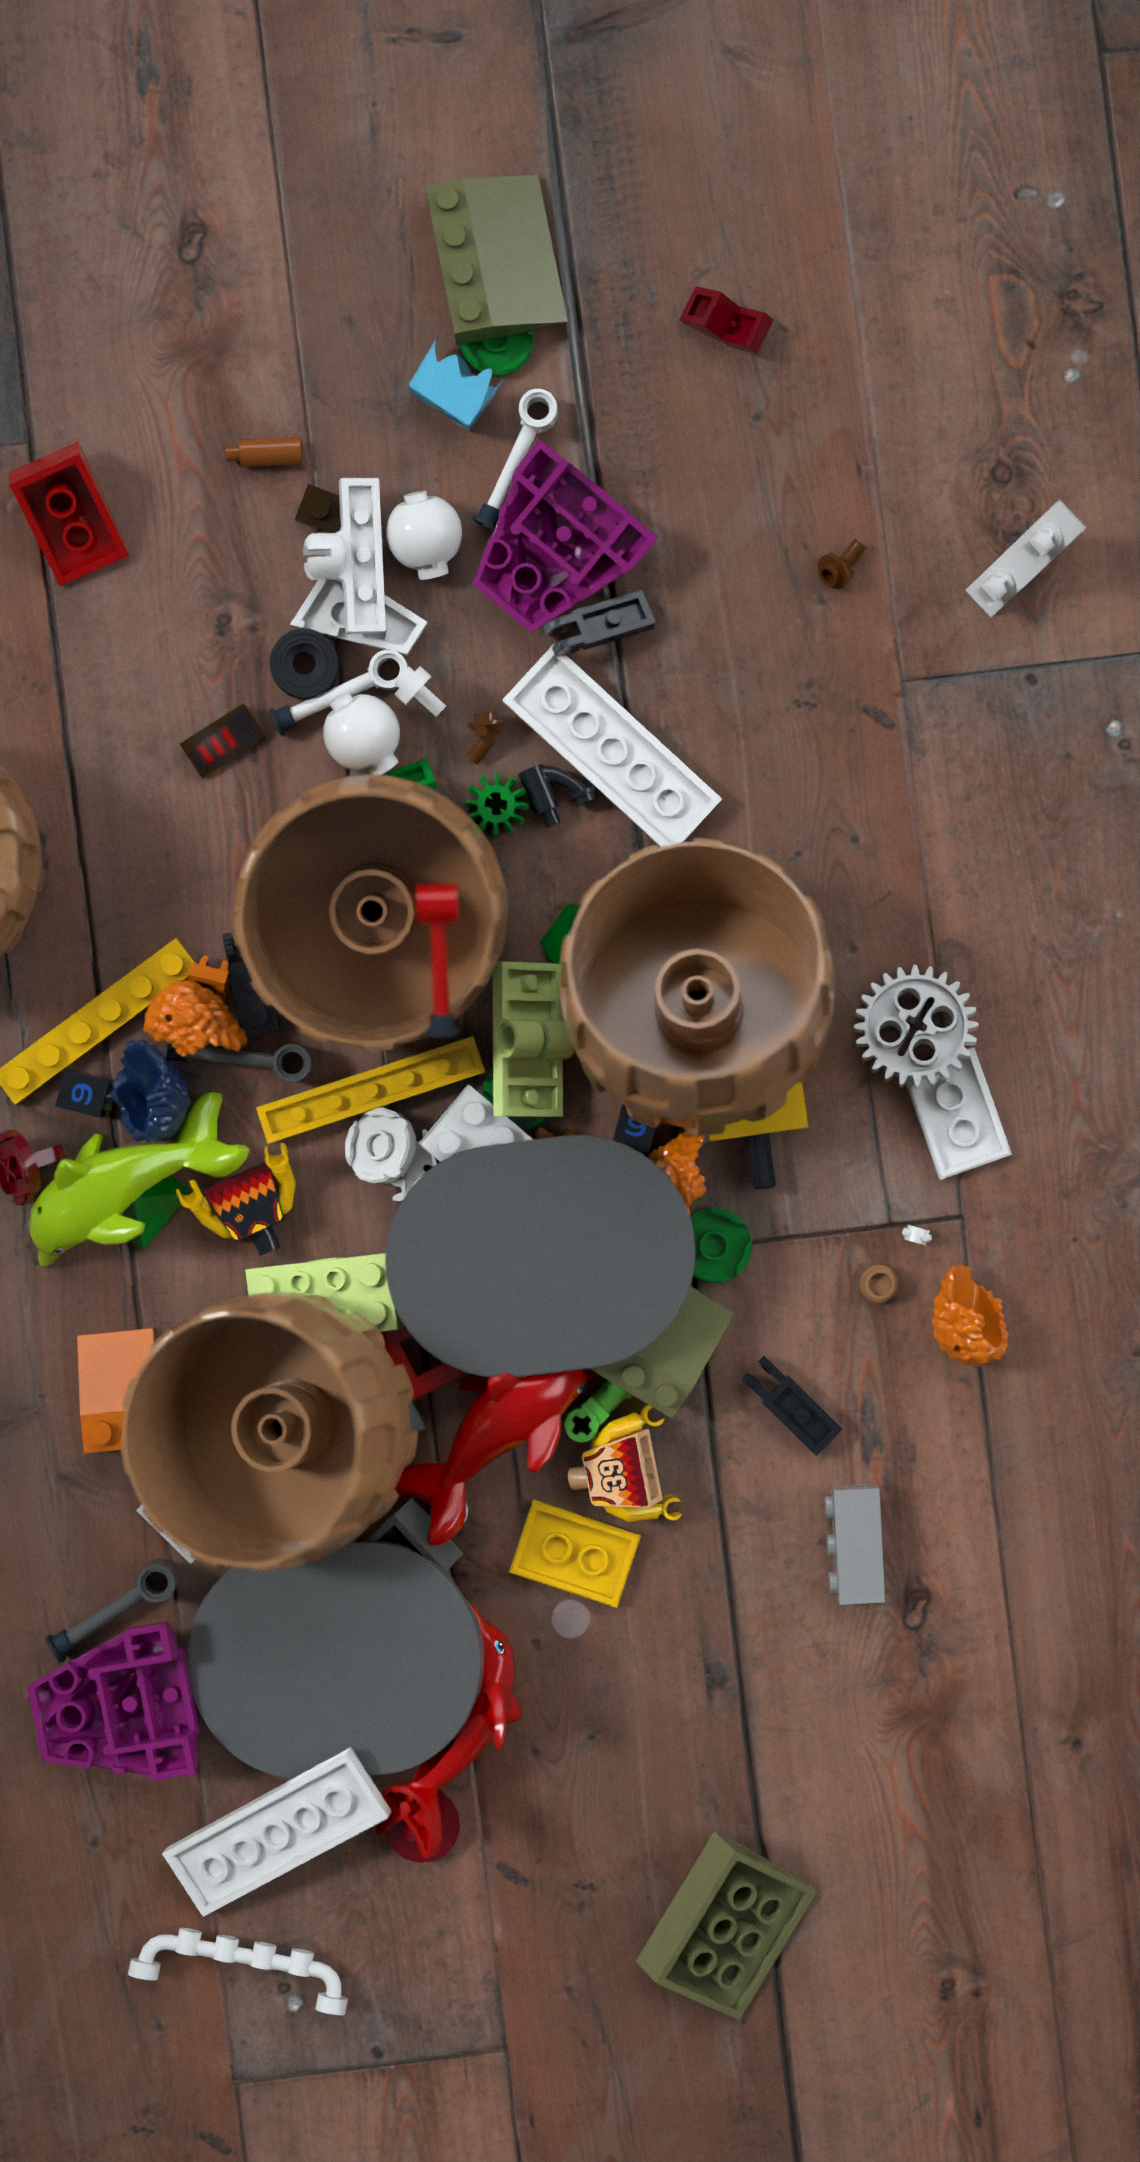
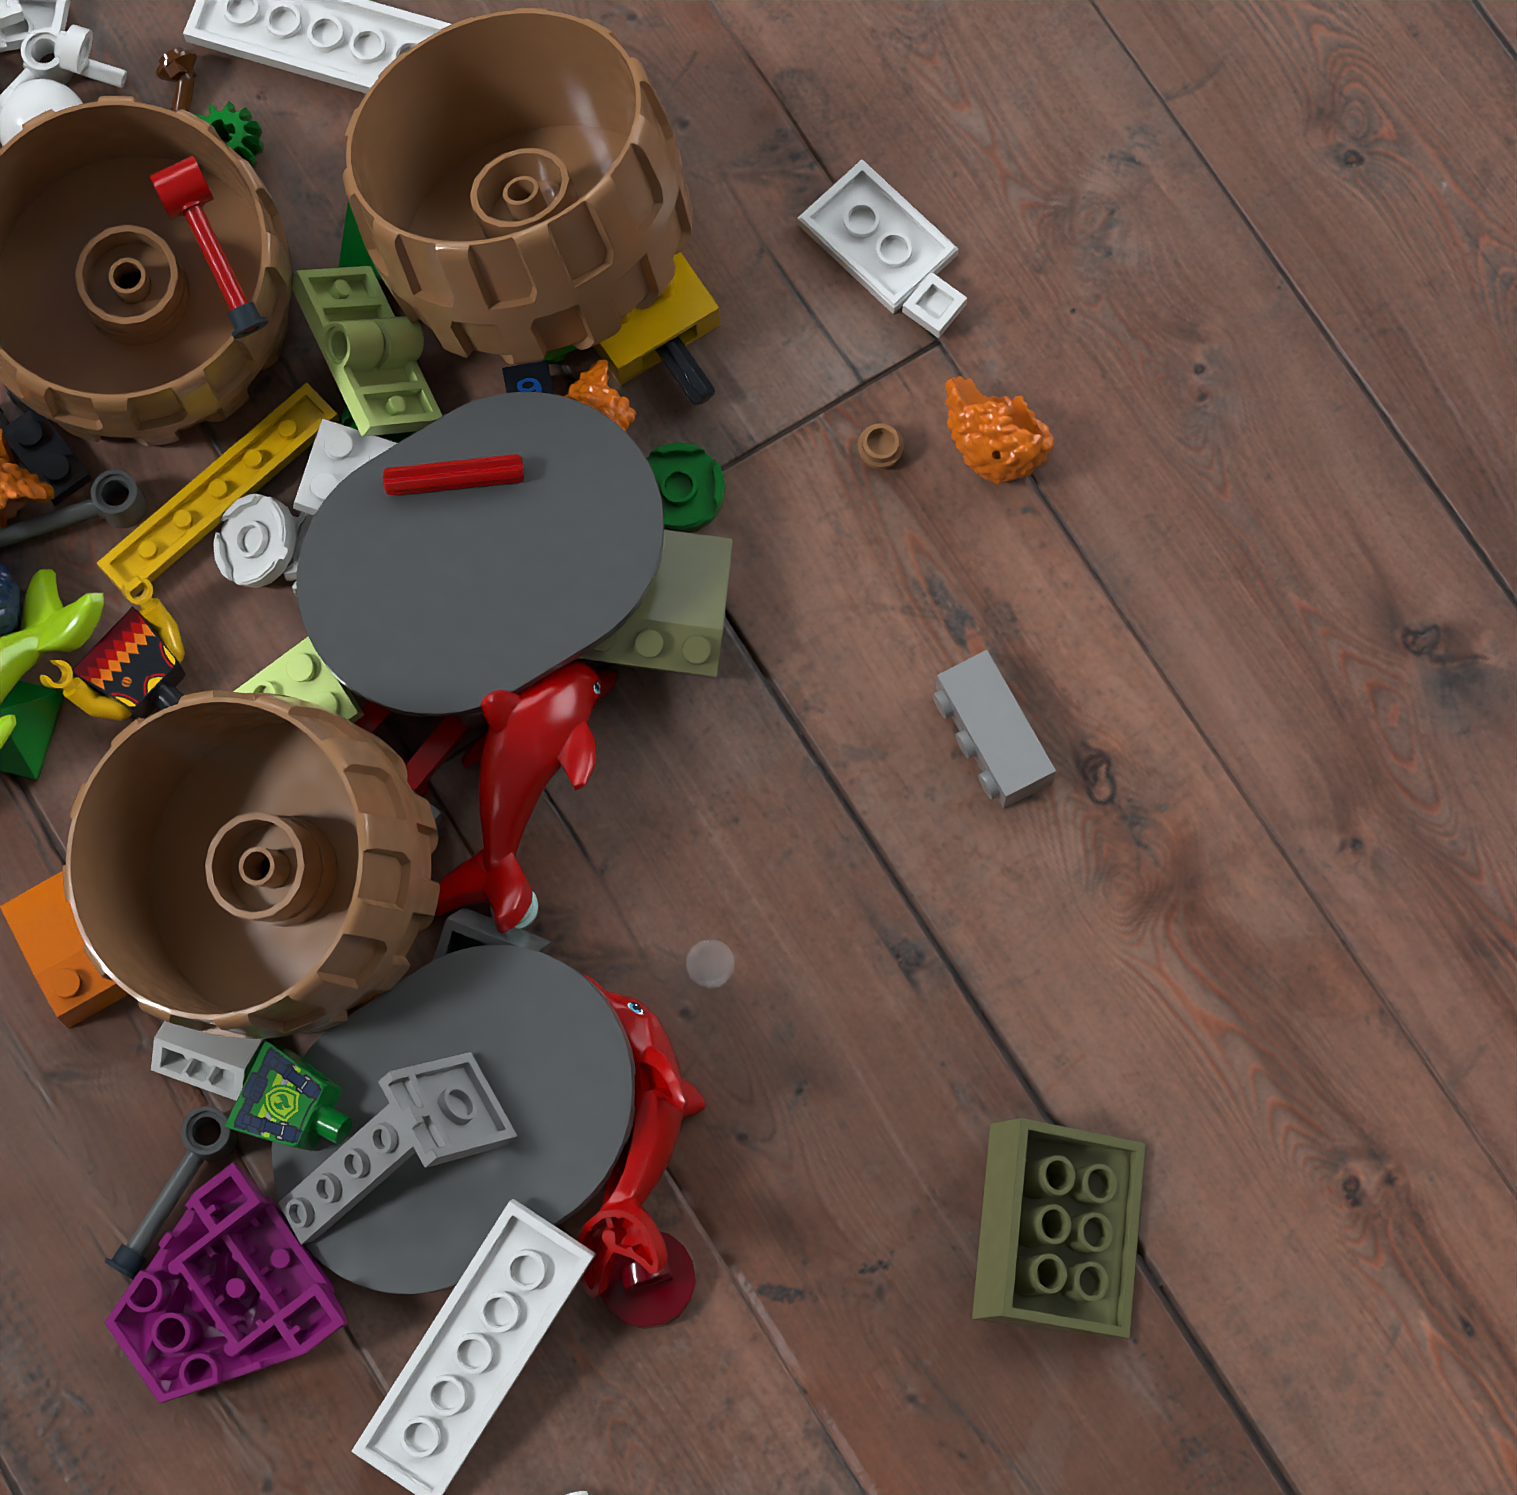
camera: 20 degrees left, 15 degrees down
(223, 1598) = (288, 1102): none -> torso
(322, 1673) = (433, 1110): none -> light grey bracket
(541, 795) = (274, 114): black plant -> none
(546, 1191) = (453, 474): none -> red axle
(575, 1553) = (680, 890): yellow tile -> none
(597, 1407) = (628, 717): bright green connector -> none
(623, 1471) = (691, 765): torso -> none
(795, 1409) = (851, 616): black hinge -> none
(916, 1235) = (897, 377): white piece -> none
(946, 1042) = (747, 162): white gear -> none
(972, 1192) = (934, 304): none -> white plate

